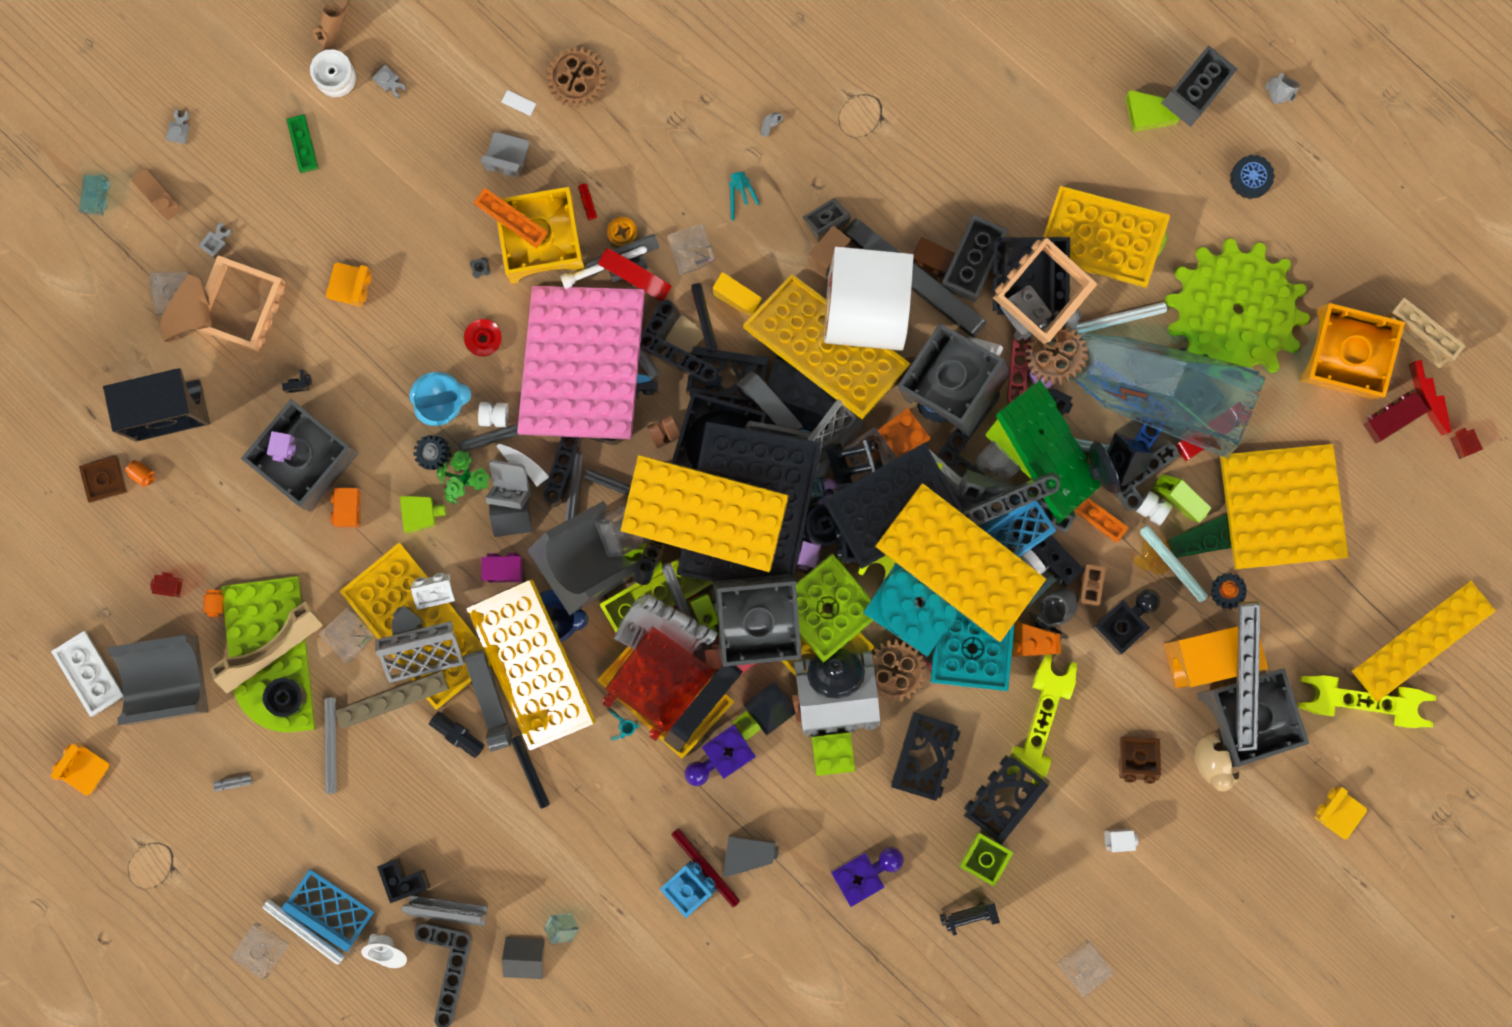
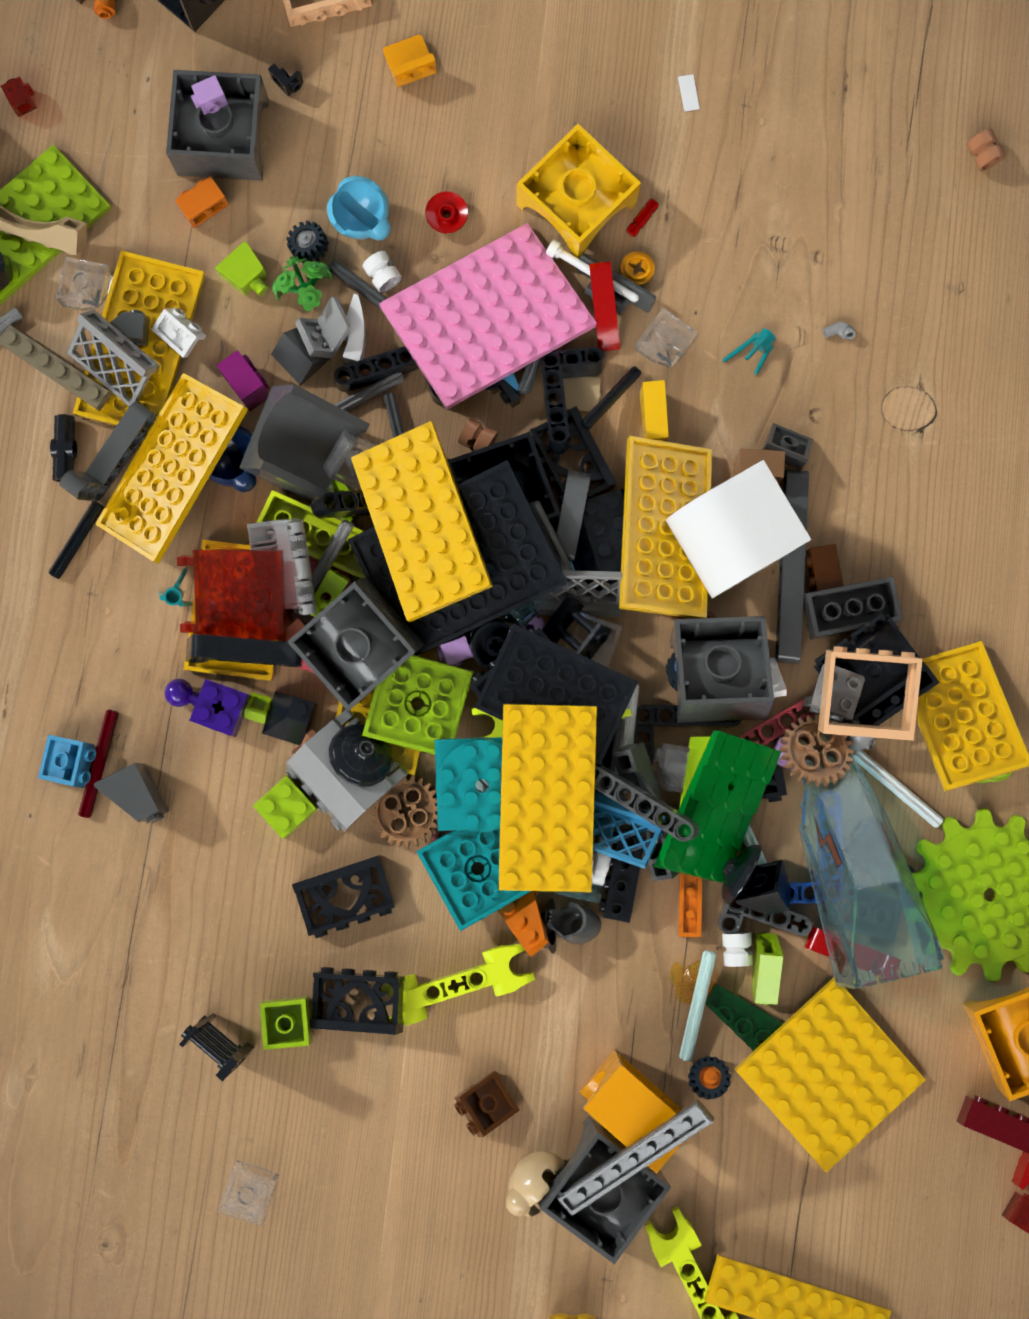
camera: 50 degrees right, 0 degrees up
(213, 603) = (32, 147): orange brick -> none
(475, 264) = (513, 160): dark grey plate -> none
(506, 155) = (631, 114): light grey bracket -> none
(510, 218) = (571, 149): orange plate -> none
(561, 70) = (751, 124): medium nougat gear -> none
(890, 860) = (198, 908): dark purple brick -> none
(903, 433) = (636, 658): orange brick -> none
(1091, 585) = (619, 940): medium nougat brick -> none
(1120, 840) = (393, 1141): white piece -> none
(1121, 613) = (641, 1005): black brick -> none

